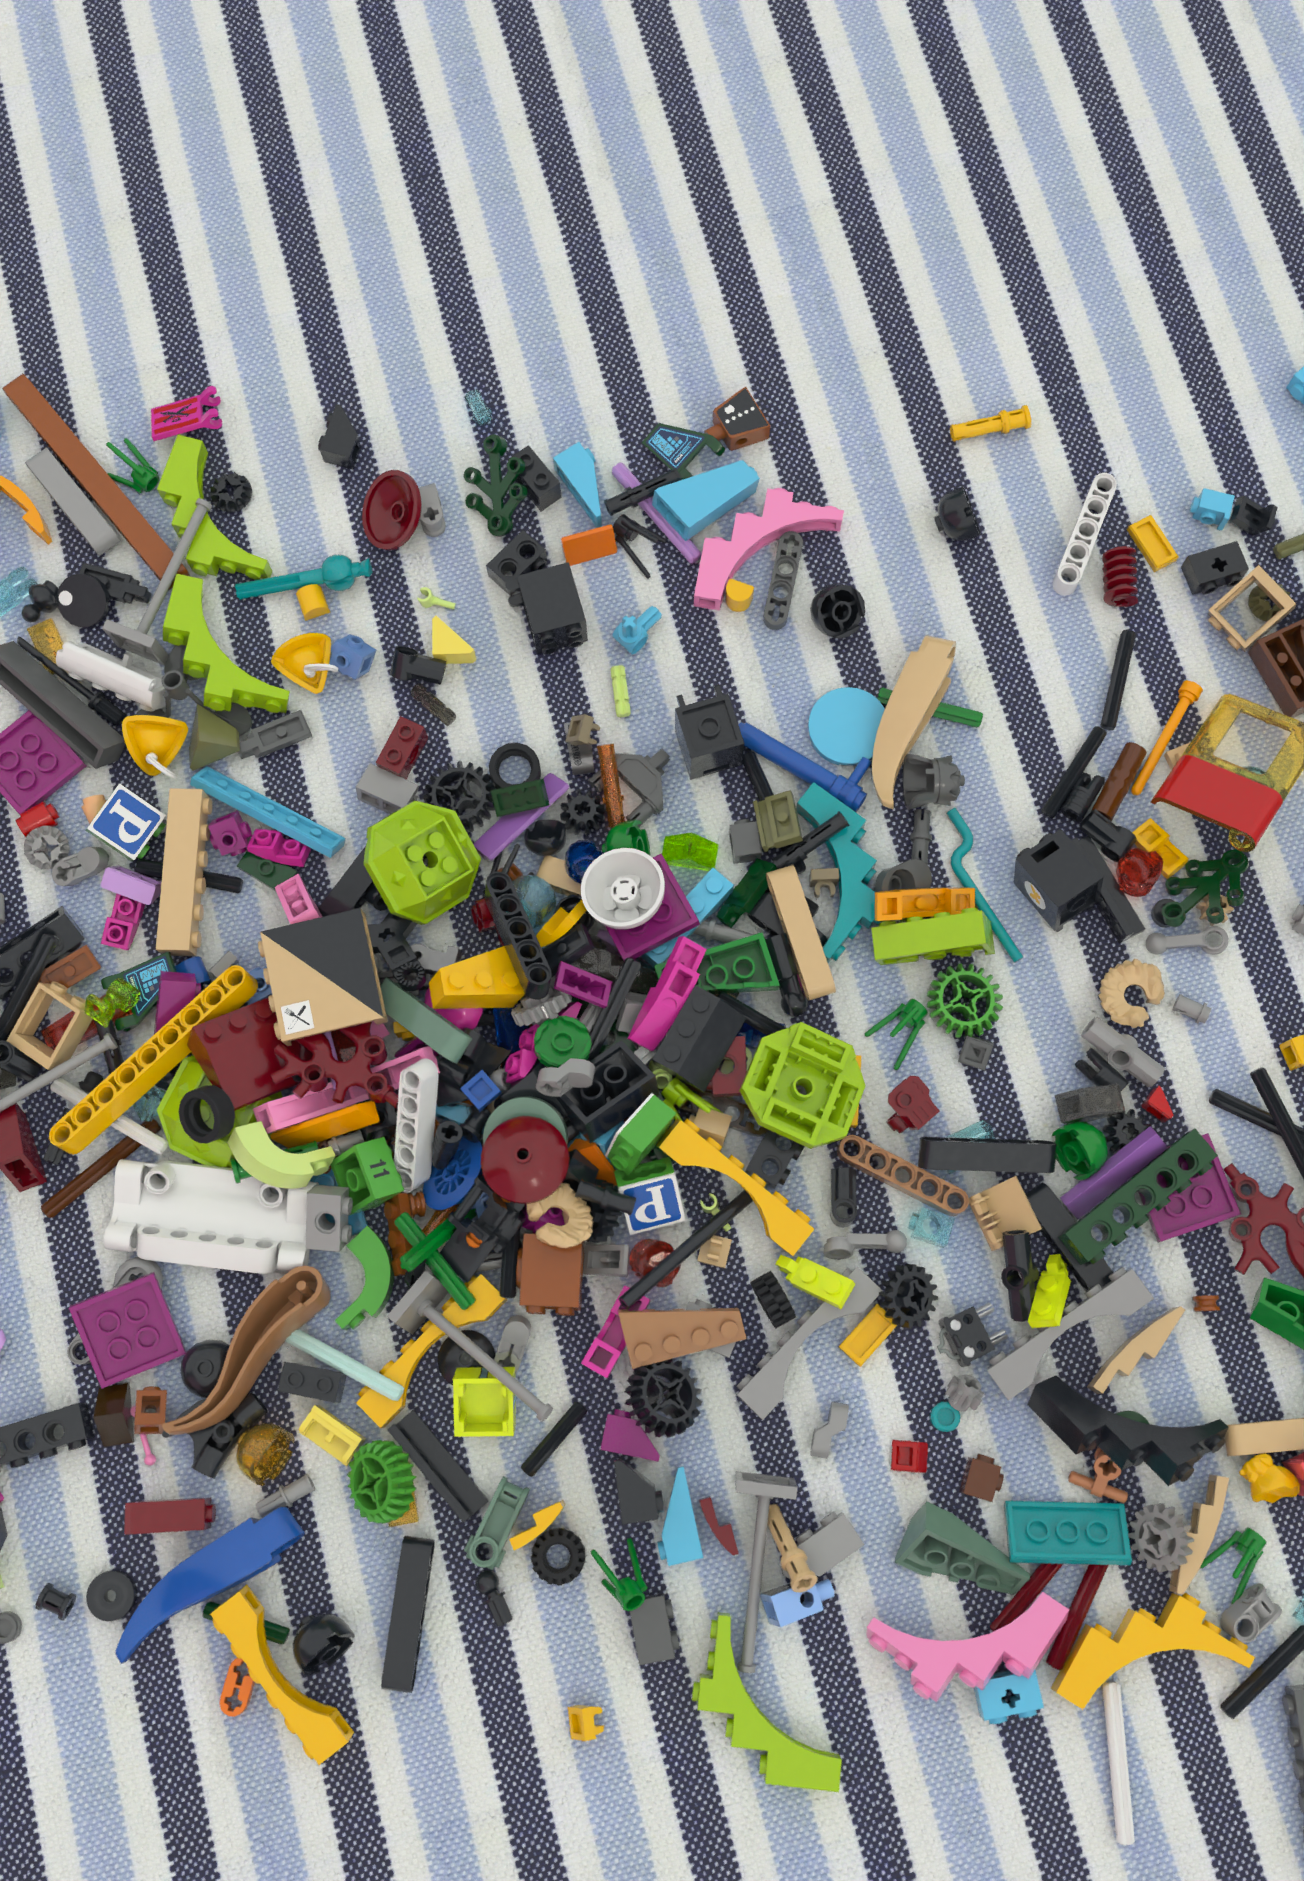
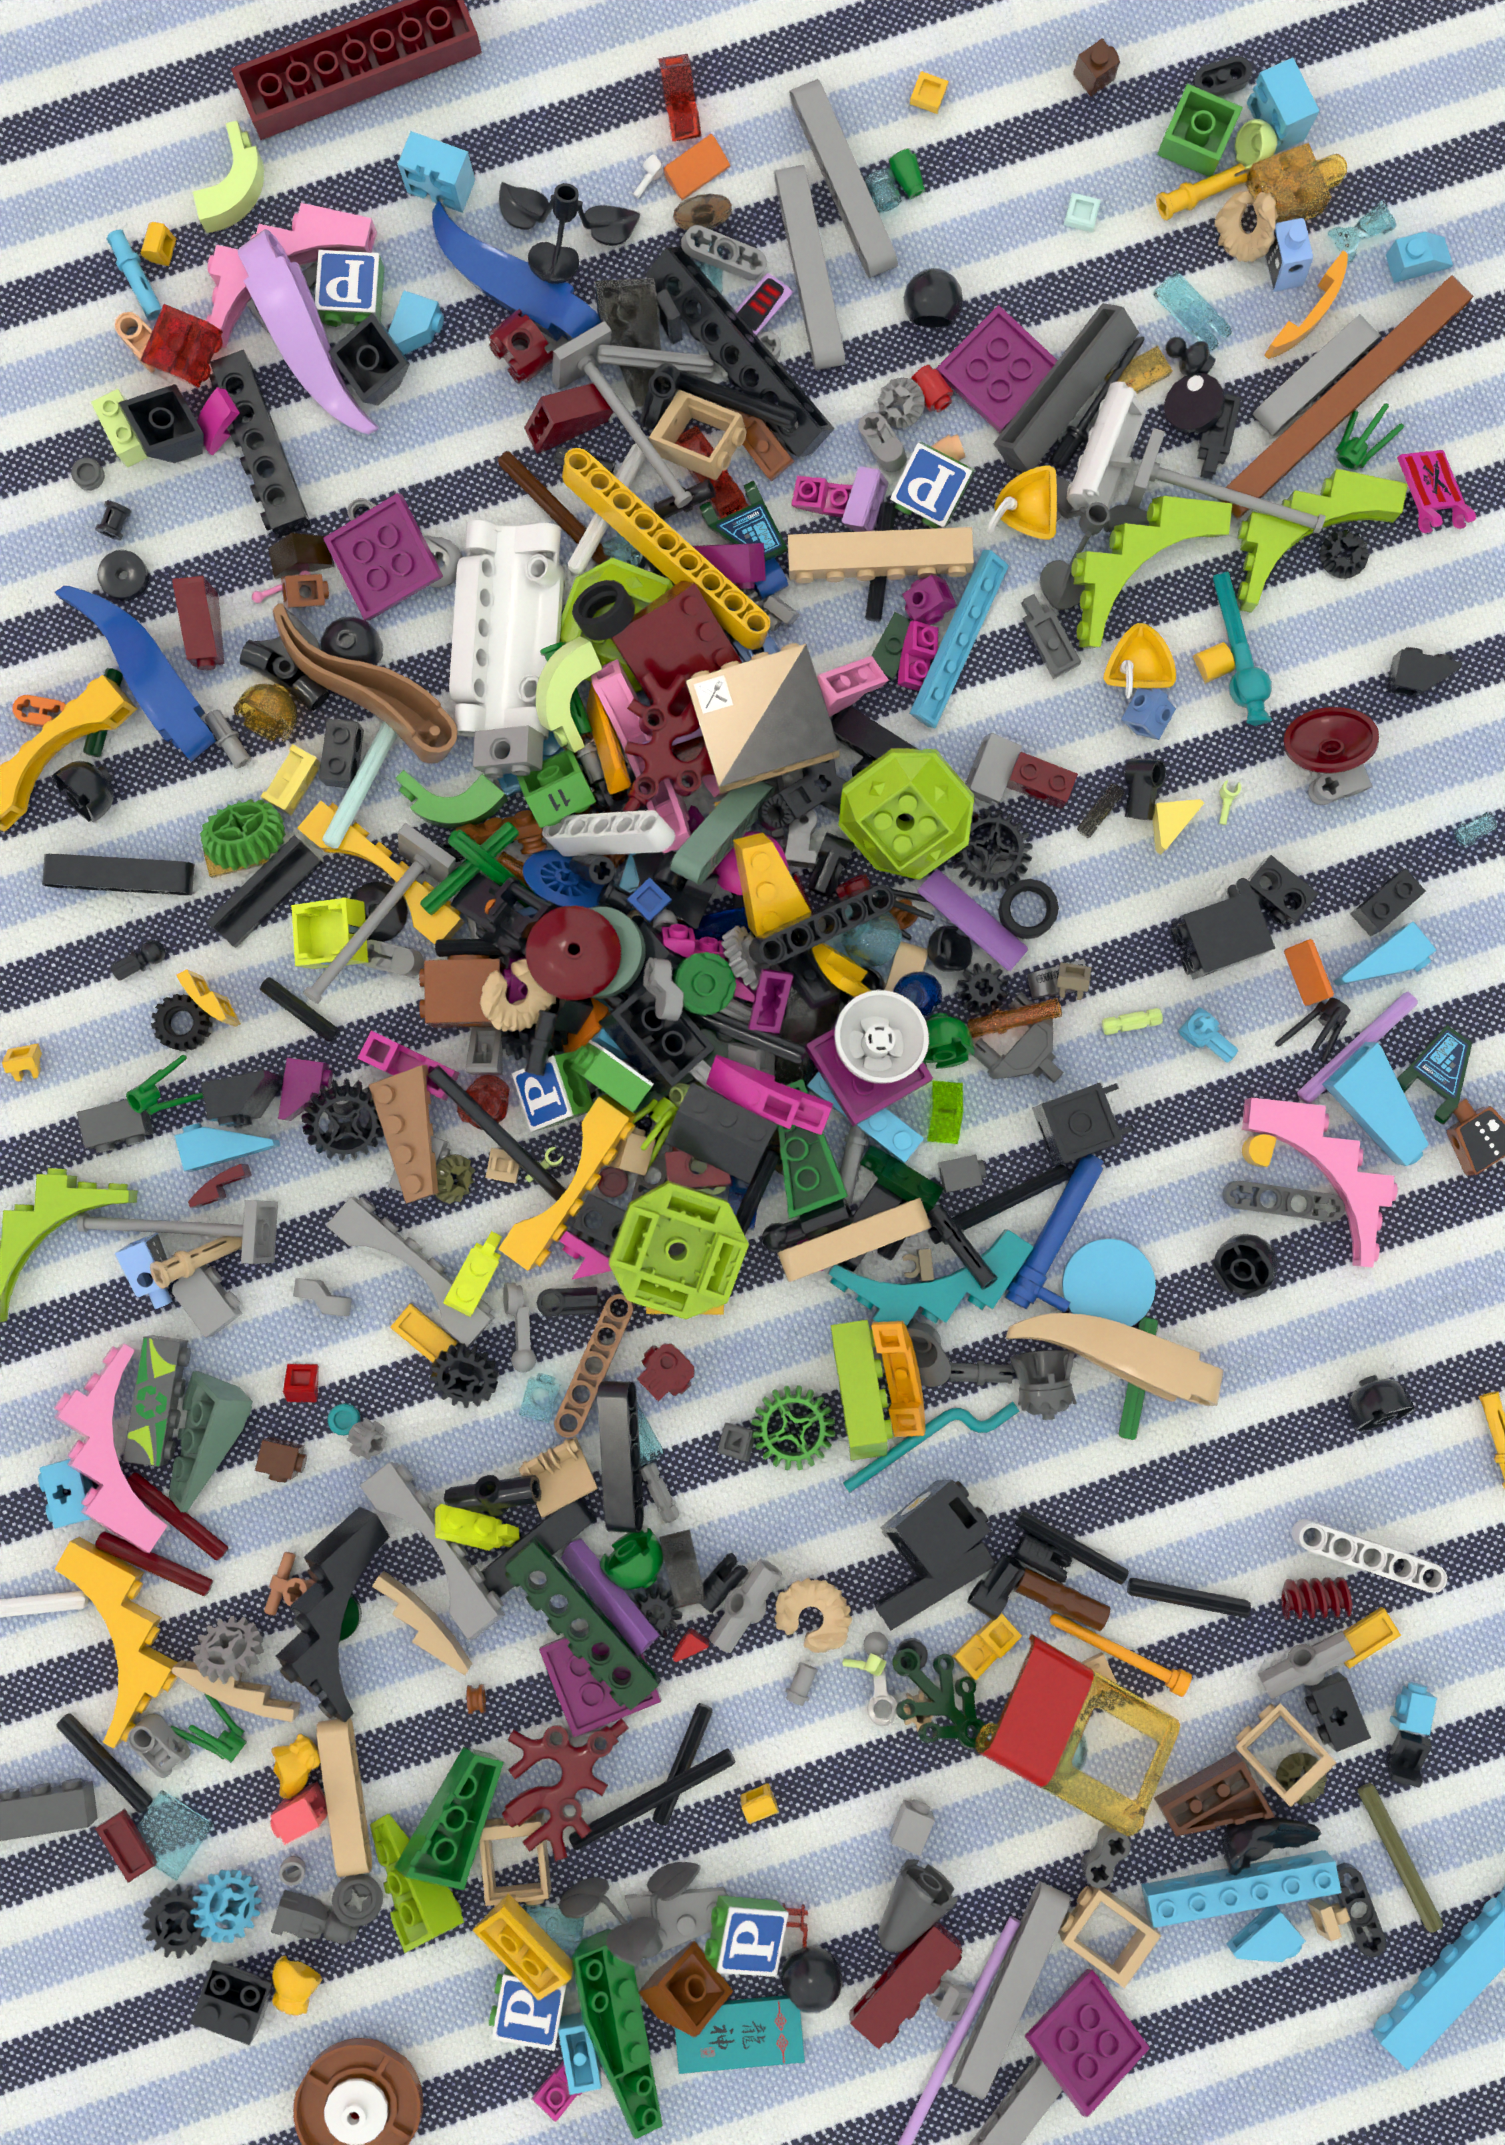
camera: 85 degrees right, 10 degrees up
(91, 1081) = (643, 486): black piece -> none
(119, 996) = (734, 502): clear neon green leg -> none
(211, 739) = (1038, 567): olive slope -> none
(455, 933) = (833, 857): none -> black piece
(497, 488) = (1369, 859): dark green plant -> none
(497, 1524) = (209, 957): sand green piece -> none
(520, 797) = (991, 916): dark green plate -> none
(633, 496) = (1360, 998): black pin -> none
(733, 1299) = (456, 1165): none -> olive gear
(737, 1147) = (612, 1182): none -> dark red tile
(773, 1299) = (451, 1230): black tyre -> none
(777, 821) = (984, 1208): olive plate -> none
(809, 1170) = (594, 1262): none -> dark pink slope
(910, 1015) = (773, 1368): green plant -> none
(922, 1600) = (156, 1401): none -> dark grey brick
(964, 1337) = (426, 1438): black piece -> none
(1020, 1124) = (659, 1492): none -> light grey axle
(1067, 1533) = (230, 1551): teal tile -> none
(1138, 871) = (954, 1622): clear red hair -> none
(1175, 943) = (874, 1664): none -> yellowish green hand
(1181, 601) = (1306, 1664): none -> light grey piece

